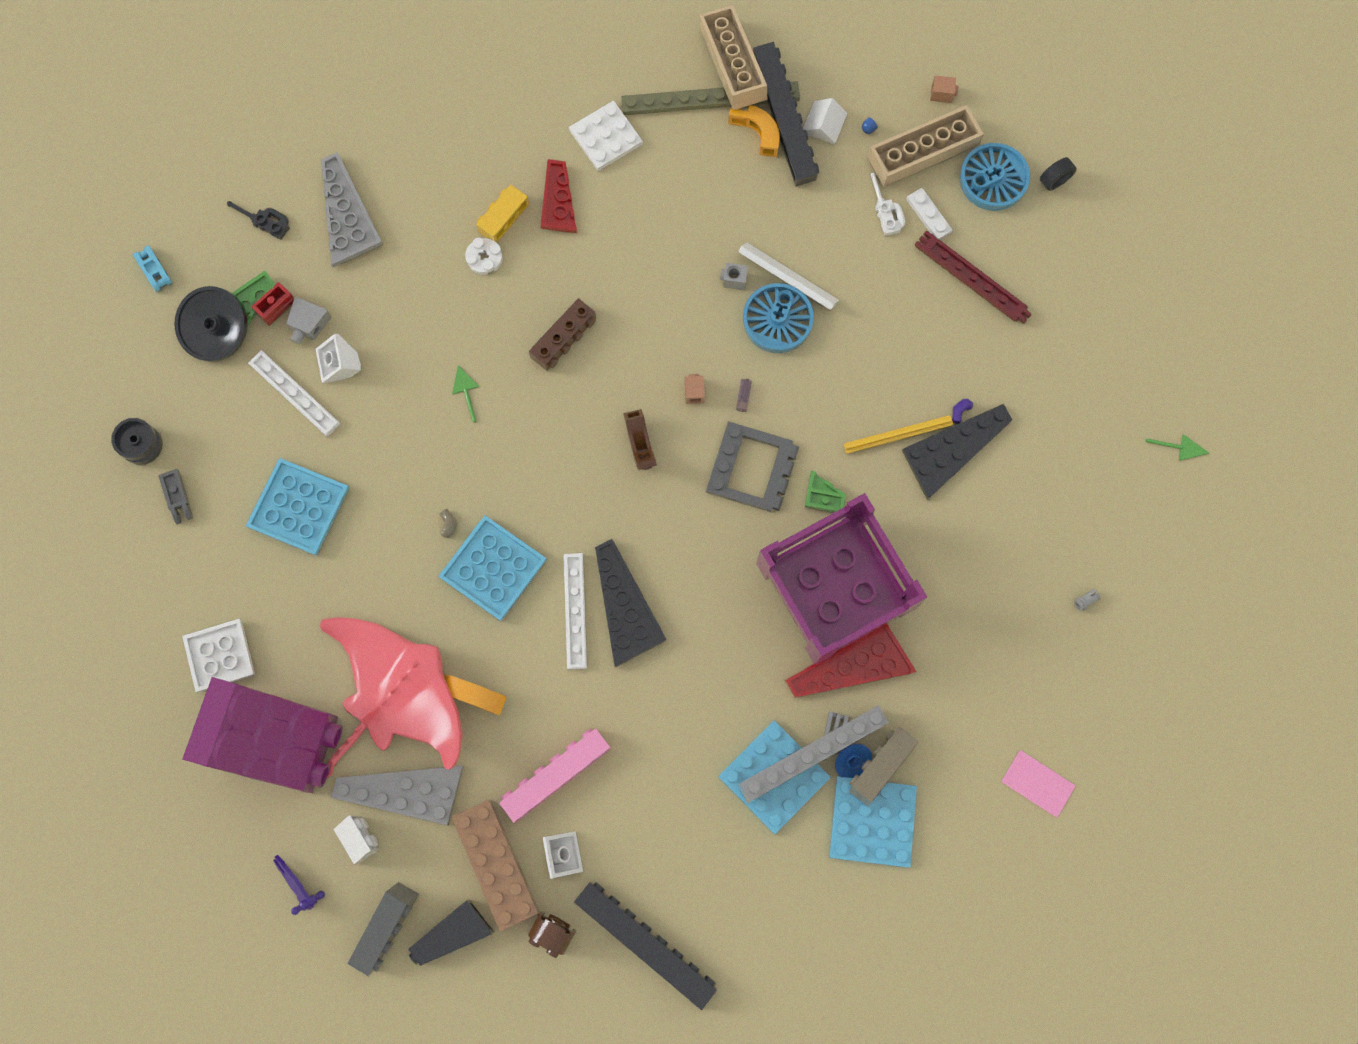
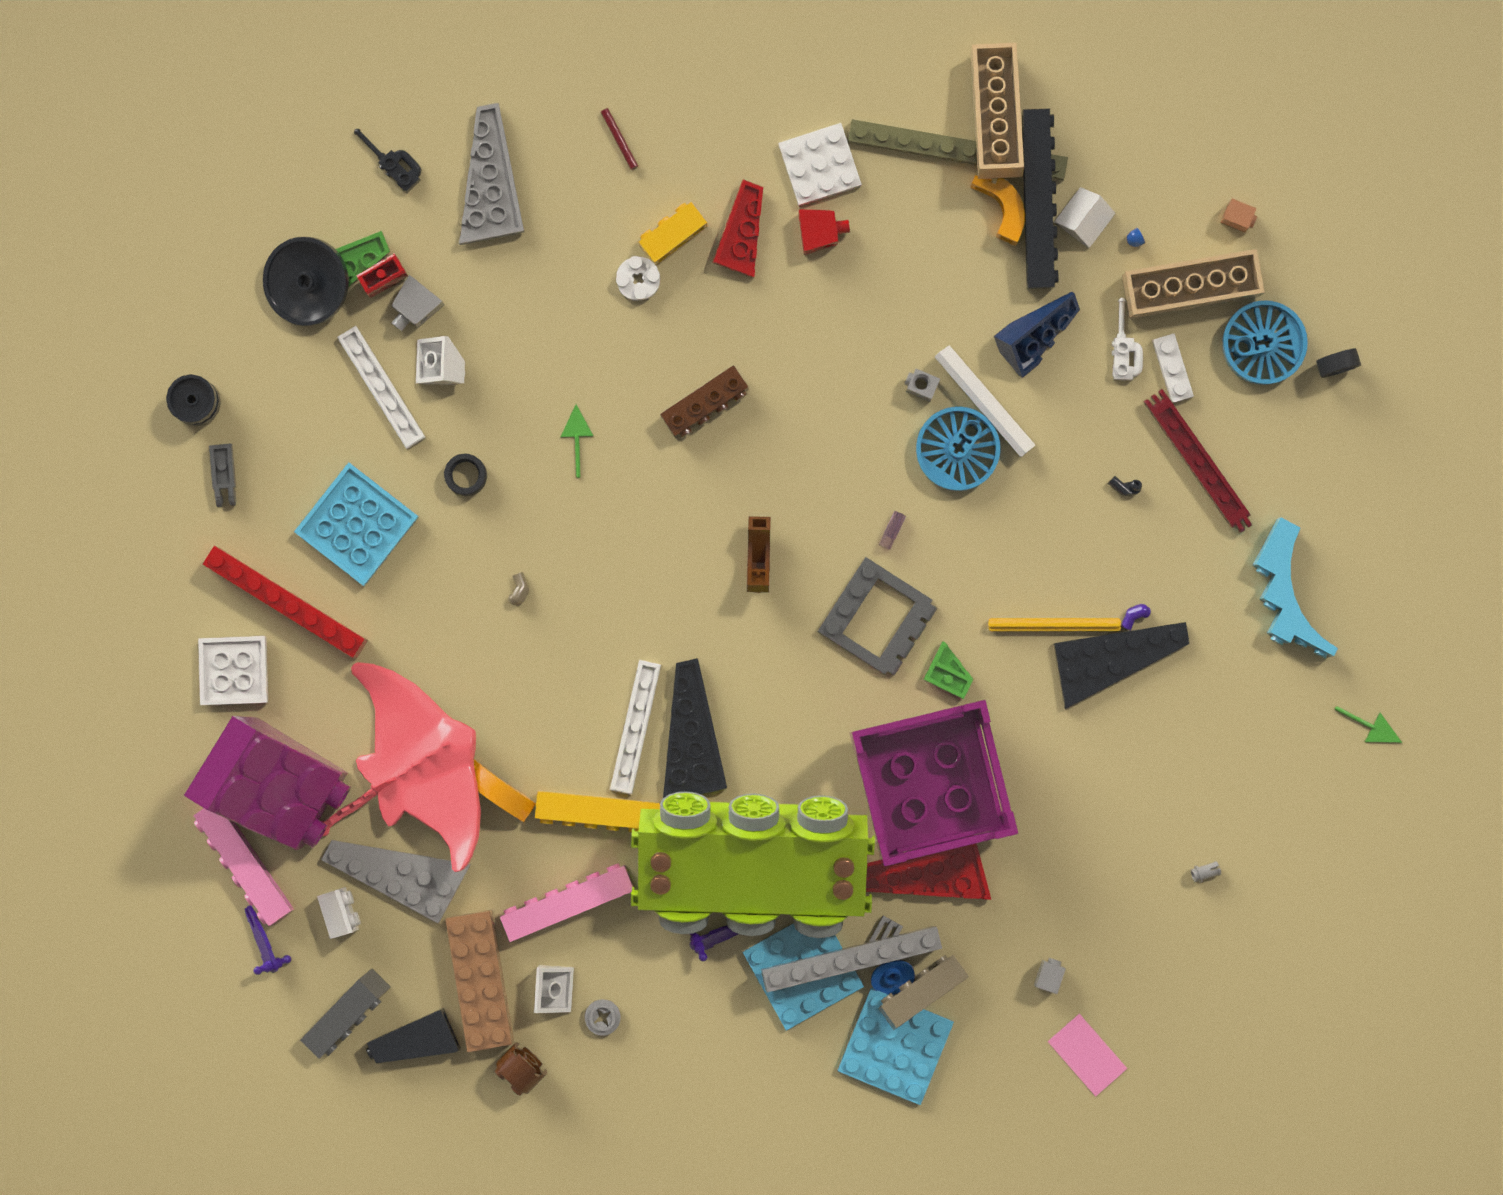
camera: 20 degrees right, 10 degrees up
(152, 268) = (251, 190): medium azure plate -> none
(250, 585) = (285, 602): none -> red brick
(263, 819) = (245, 865): none -> bright pink brick
(373, 430) = (448, 474): none -> black tyre
(441, 156) = (619, 139): none -> dark red bar
(492, 568) = (556, 654): medium azure plate -> none
(585, 684) = (590, 810): none -> yellow brick
(602, 868) = (613, 1019): none -> light grey gear
(619, 181) = (820, 229): none -> red torso
(645, 945) = (616, 1106): black brick -> none
(693, 767) = (704, 942): none -> dark purple piece
(694, 389) = (837, 508): nougat brick -> none
(706, 691) = (752, 863): none -> lime piece
(809, 218) = (1029, 336): none -> dark blue wedge
(921, 314) = (1127, 488): none -> black arm
(986, 722) = (1050, 975): none -> light grey brick
(1071, 361) = (1289, 622): none -> medium azure arch

